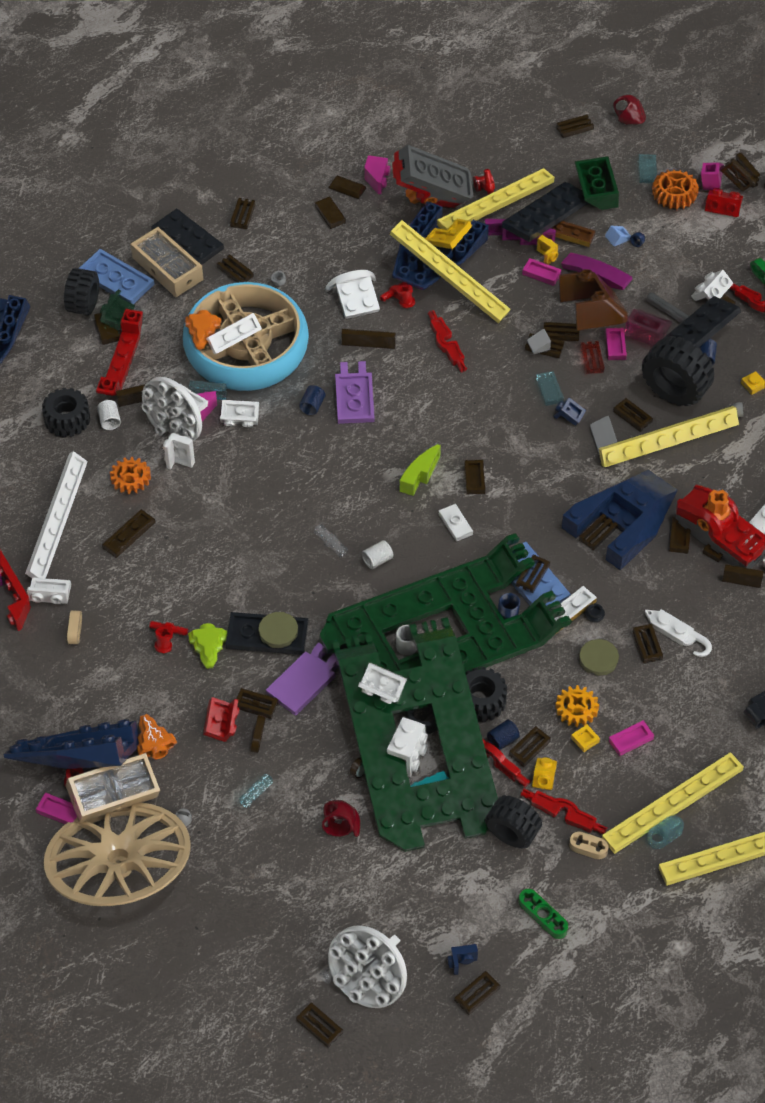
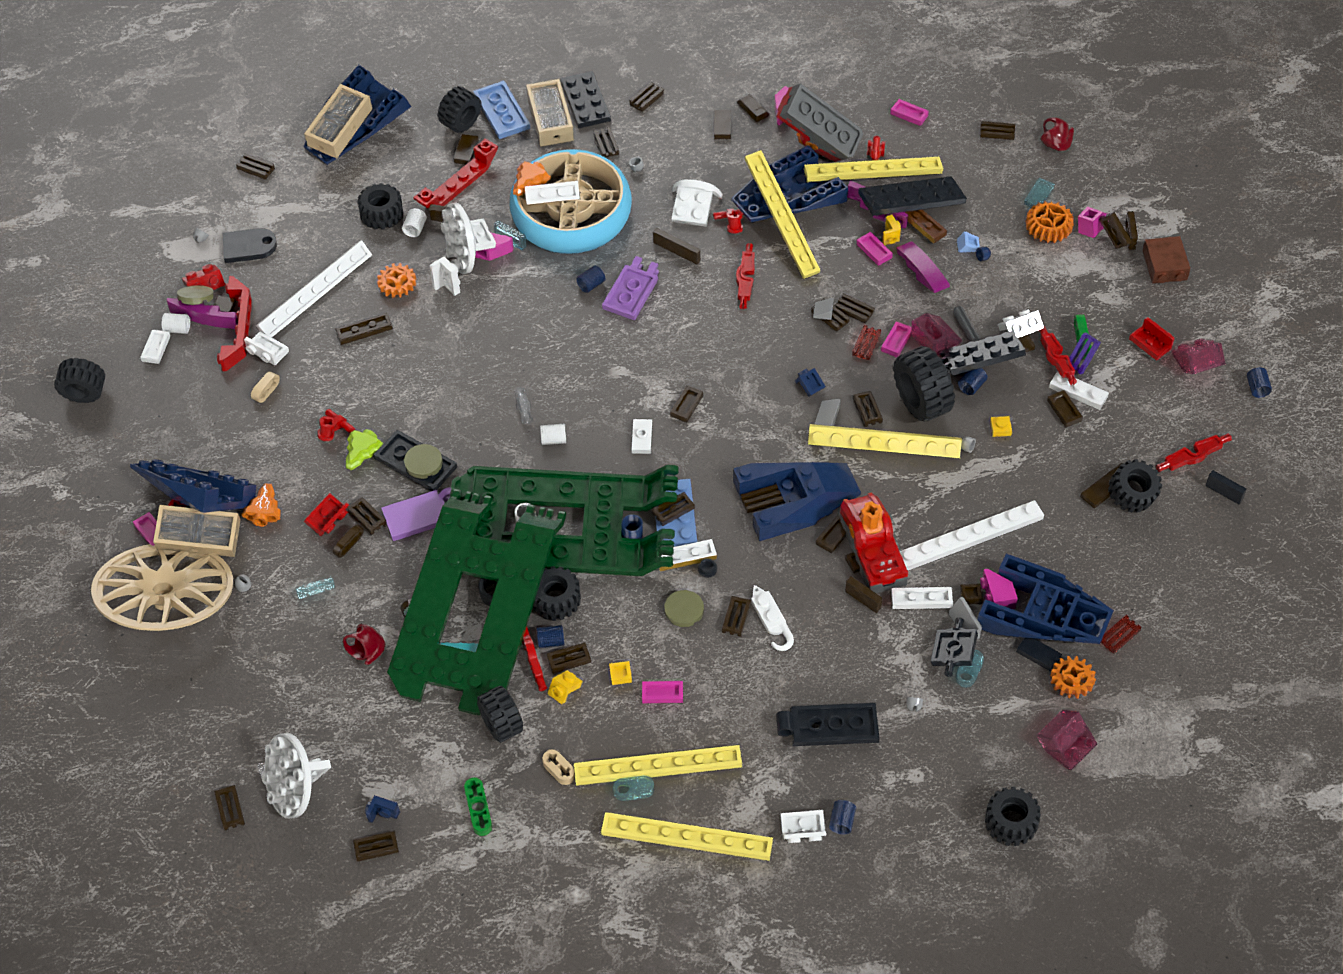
camera: 30 degrees right, 0 degrees up
(114, 310) = (474, 135): clear green bracket -> none
(239, 413) = (523, 265): white bracket -> none
(383, 683) = (461, 542): white bracket -> none
(409, 743) = (459, 607): white bracket -> none
(420, 470) = (641, 377): lime slope -> none
(450, 237) = (801, 185): yellow plate -> none
(488, 138) = (909, 112): none -> dark pink tile
(549, 388) = (808, 353): clear light blue tile -> none
(574, 816) = (564, 734): red piece -> none
(577, 707) = (640, 636): light orange gear -> none
(598, 182) = (977, 188): dark green slope -> none
(604, 306) = (900, 293): reddish brown windscreen -> none
(723, 202) = (1088, 251): red bracket -> none

